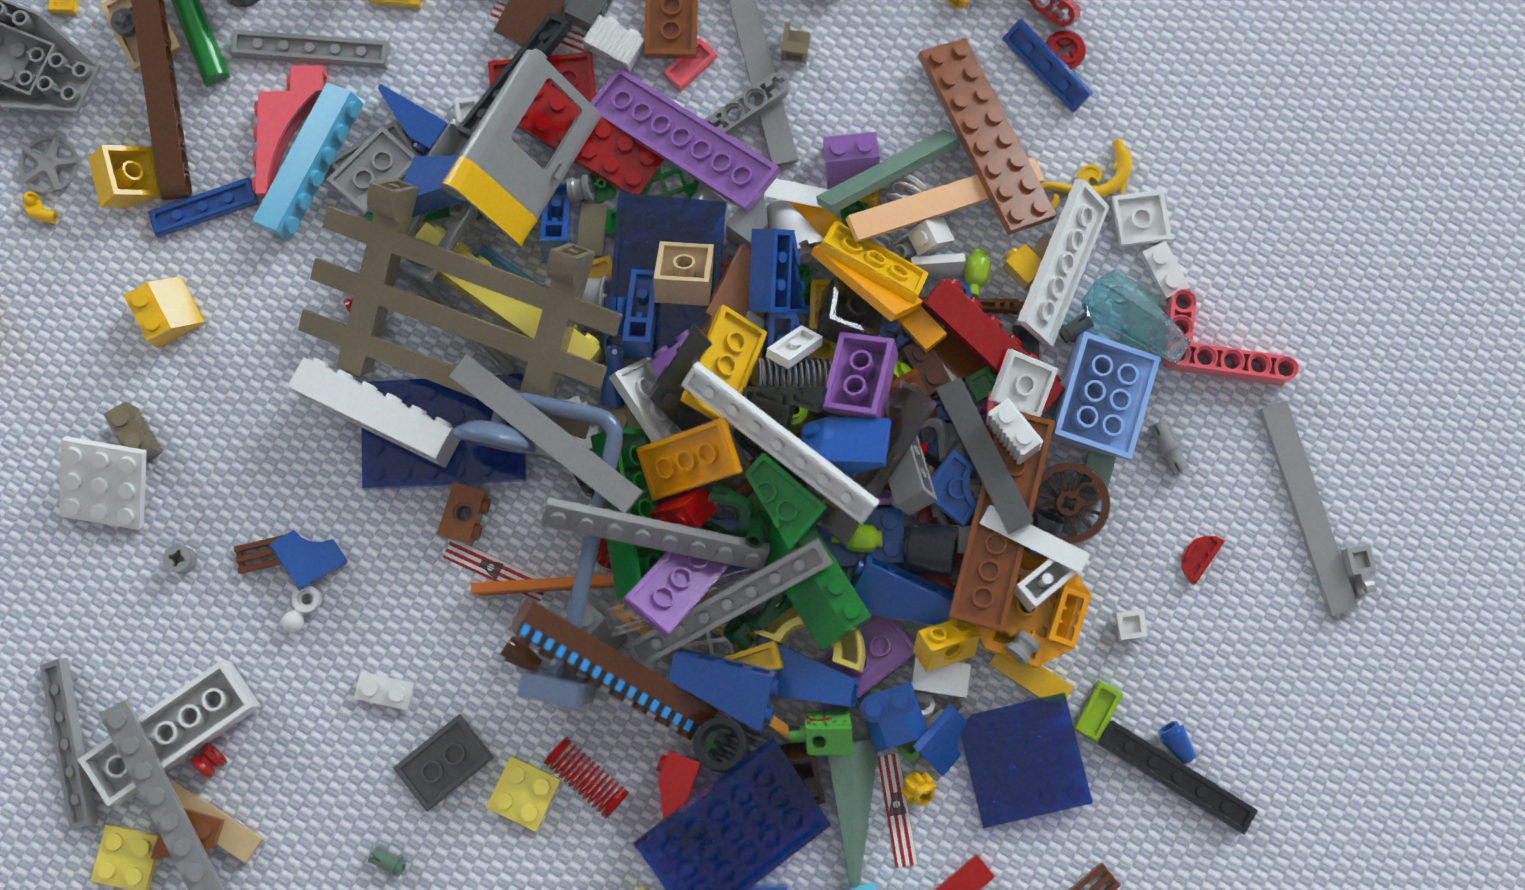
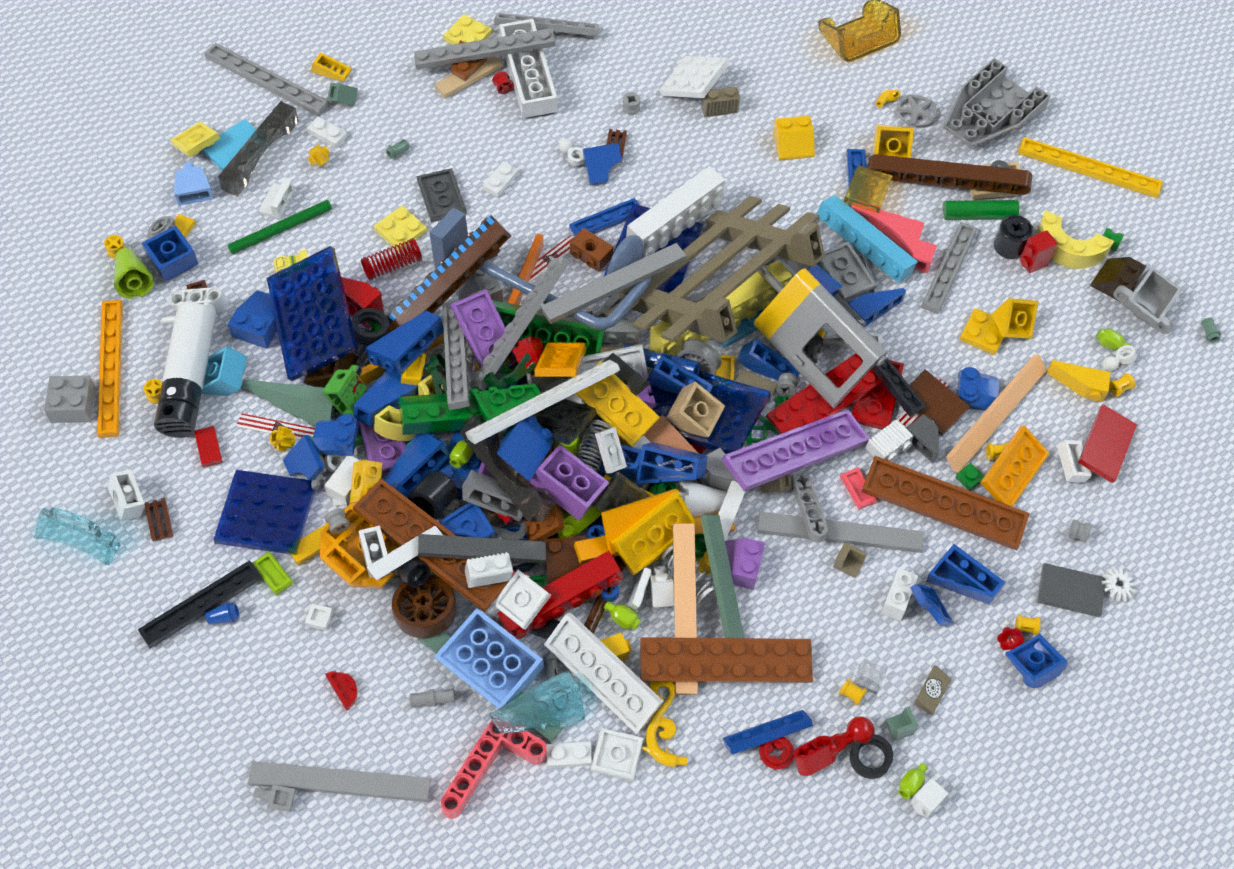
camera: 110 degrees right, 20 degrees down
(225, 180) = (868, 189): none -> clear yellow tile
(400, 521) = (604, 219): none -> blue tile

